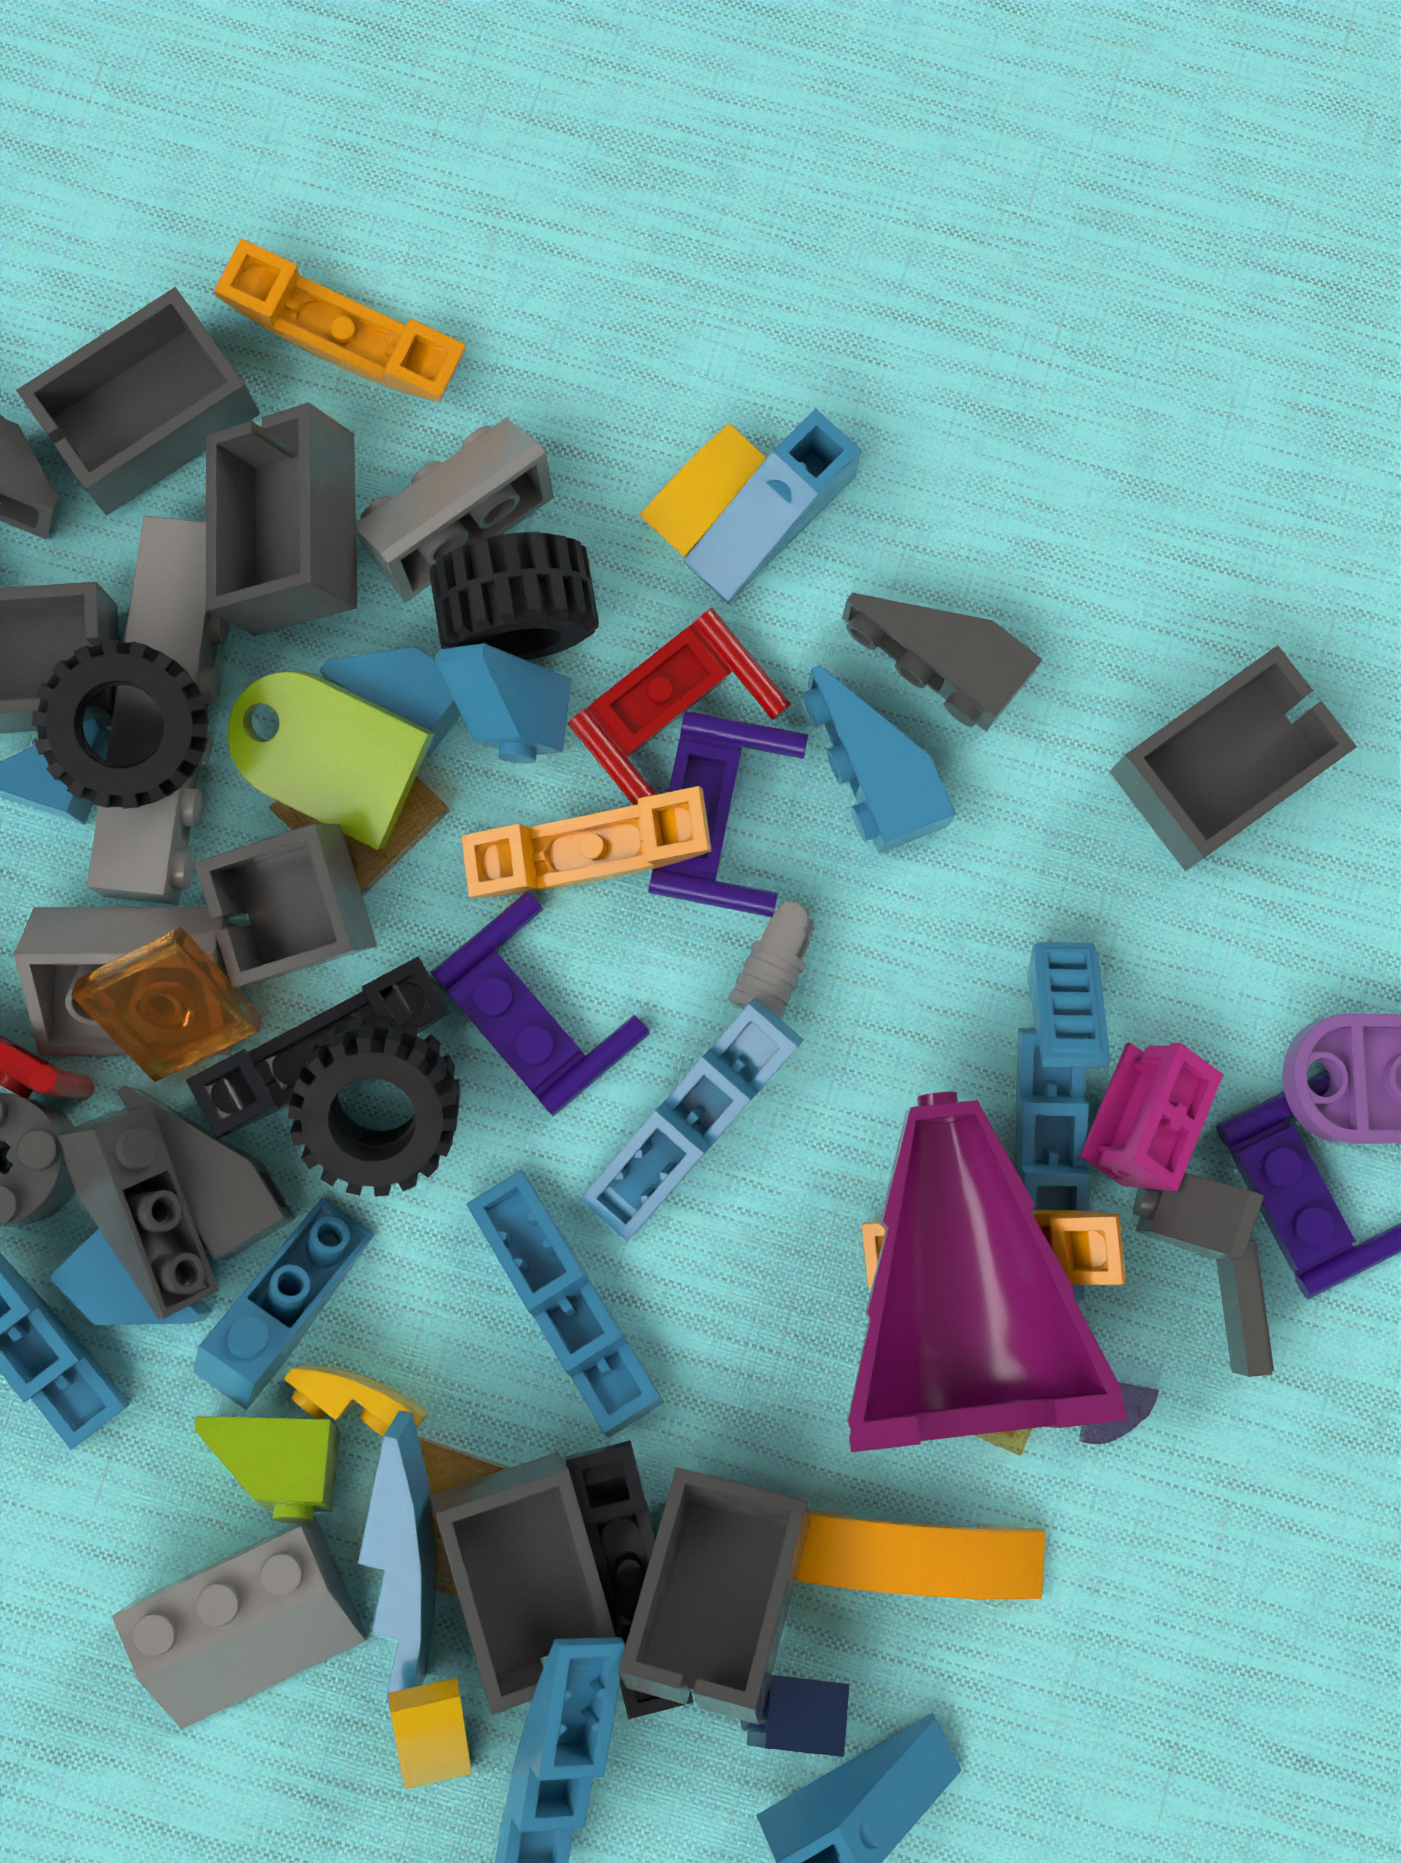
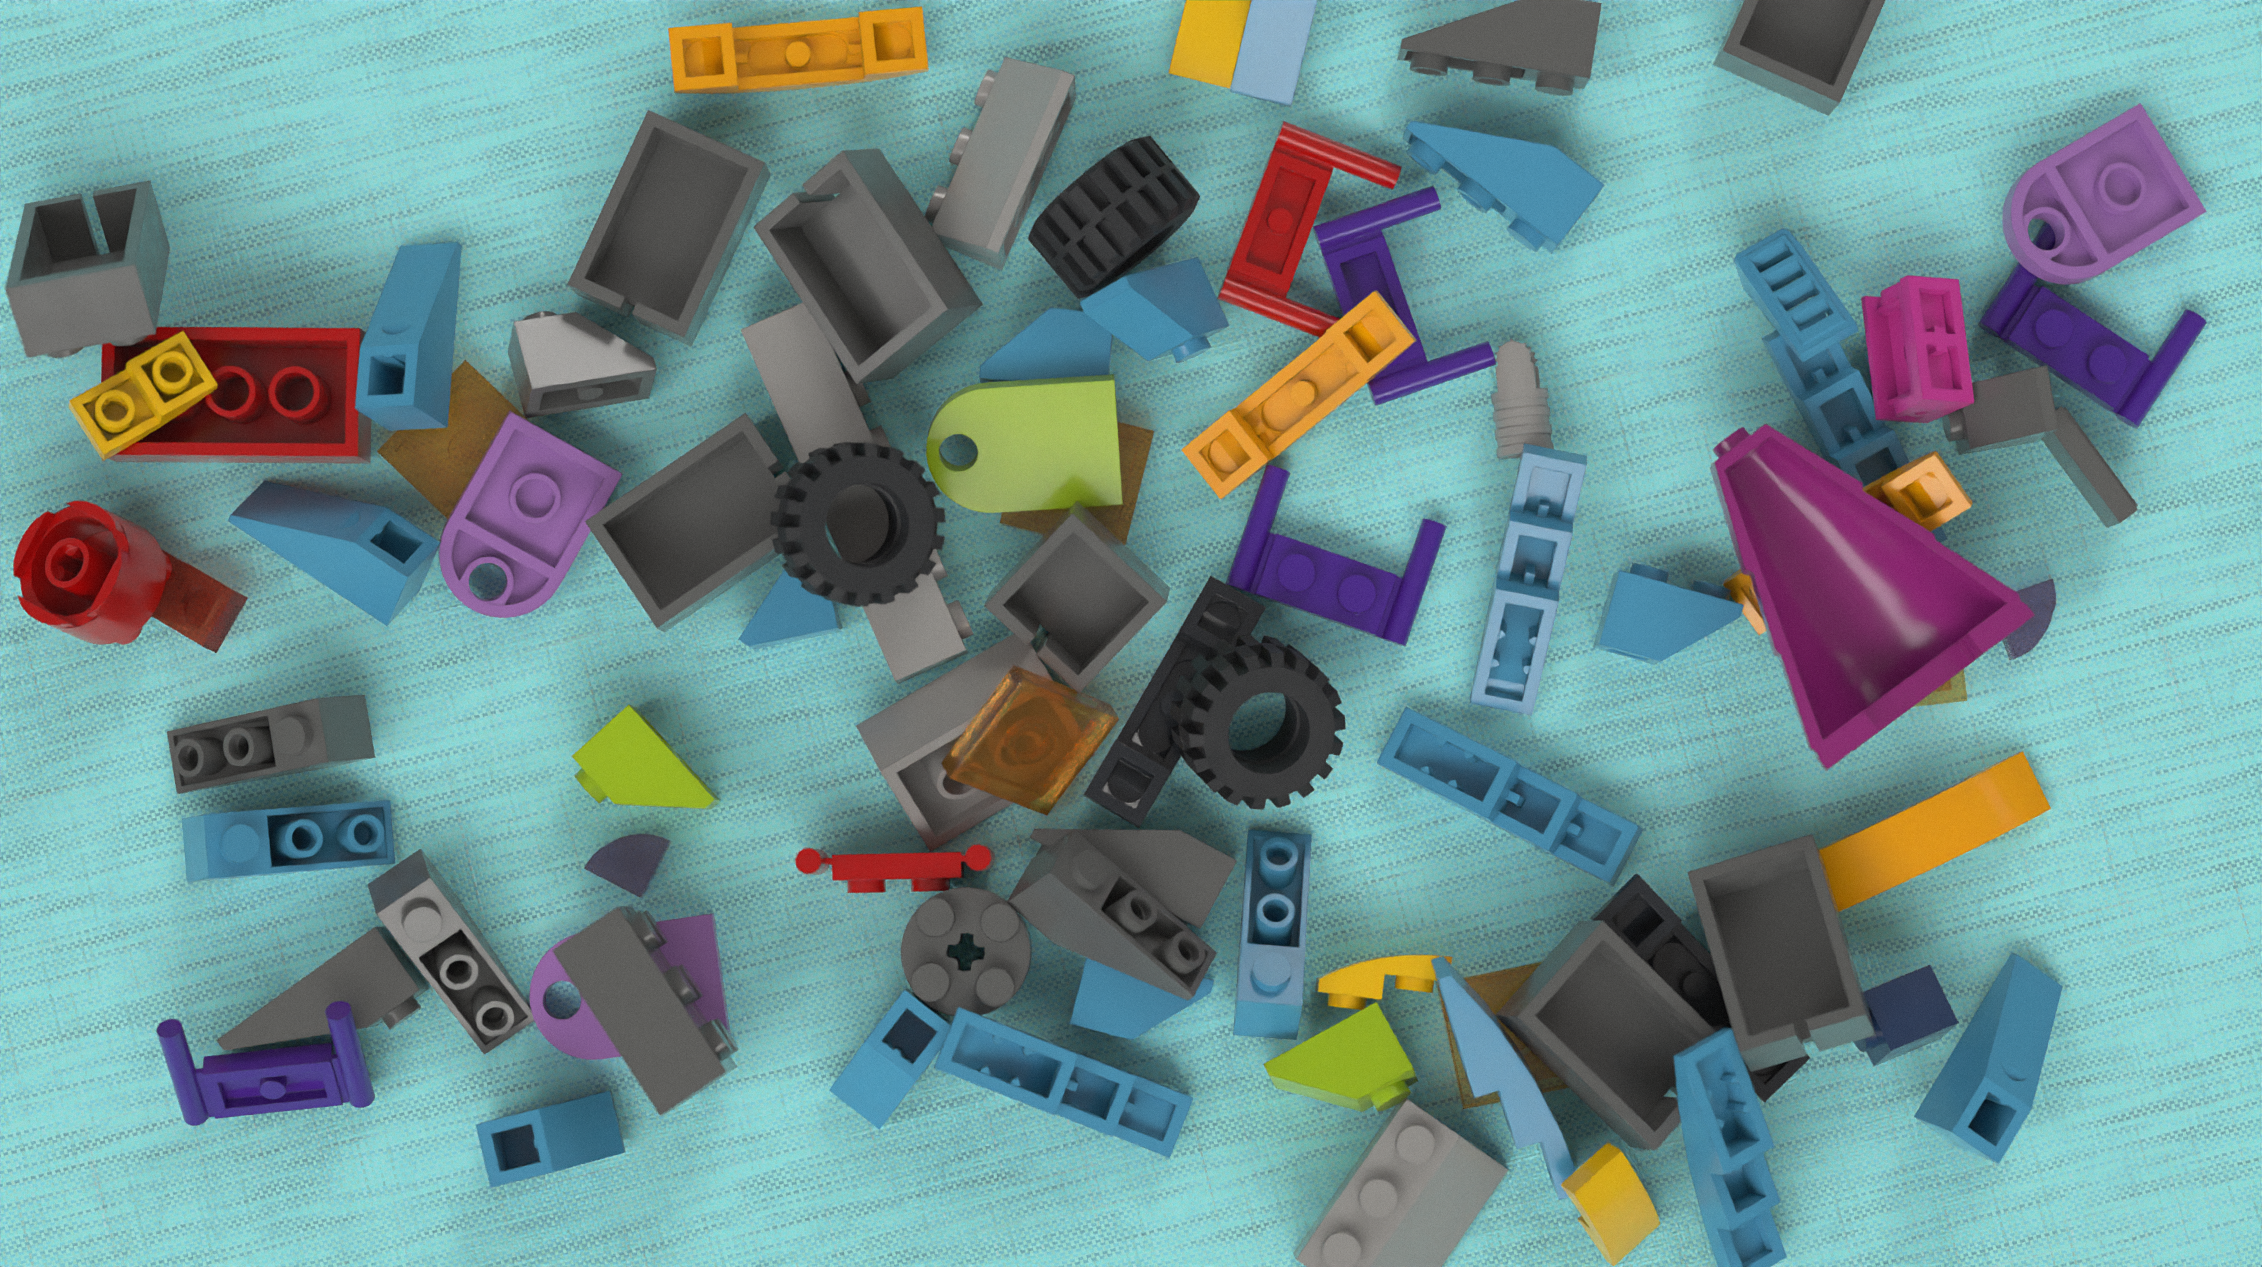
camera: 25 degrees left, 5 degrees up
(787, 1223) = (1656, 619): none -> dark azure slope

